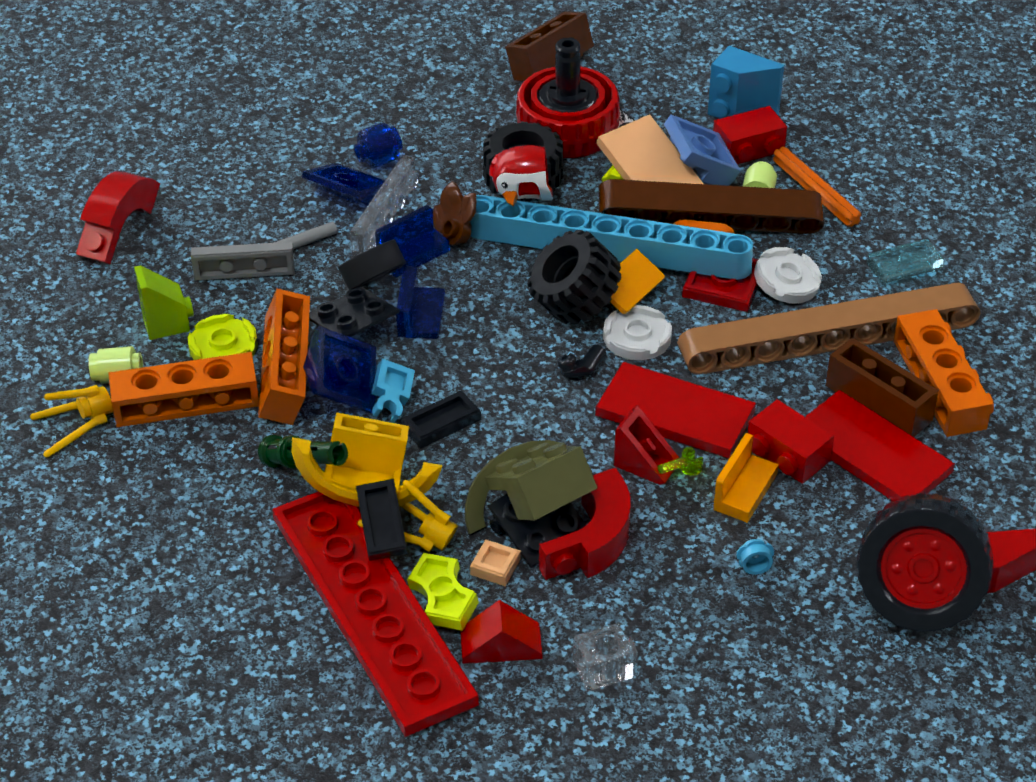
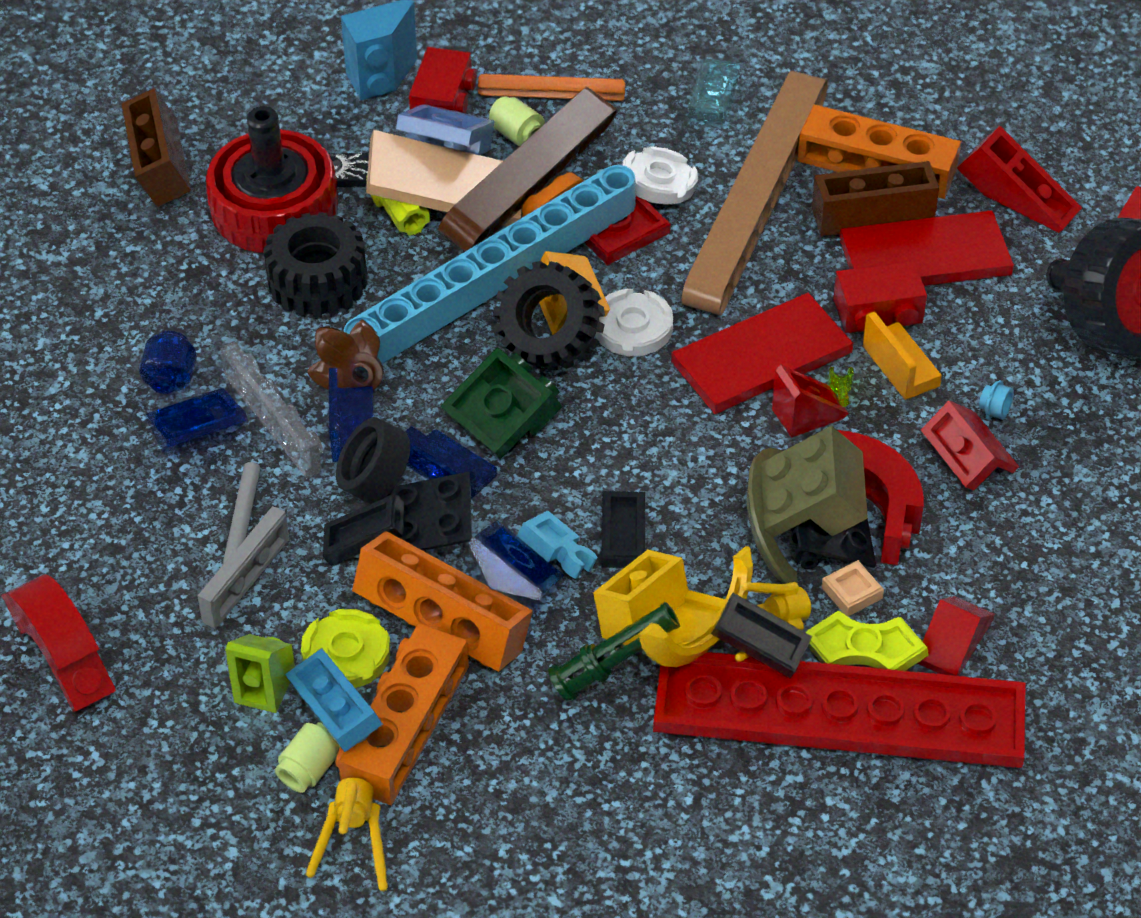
camera: 55 degrees left, 5 degrees up
(153, 345) = (334, 700): none -> dark azure plate
(320, 291) = (354, 530): none -> black tile
(490, 302) = (502, 402): none -> dark green plate
(521, 173) = (375, 263): red piece -> none
(575, 368) = (646, 384): black arm -> none
(604, 656) = (1041, 569): clear brick -> none
(696, 561) = (967, 444): none -> red panel
(999, 462) = (1017, 181): none -> red slope

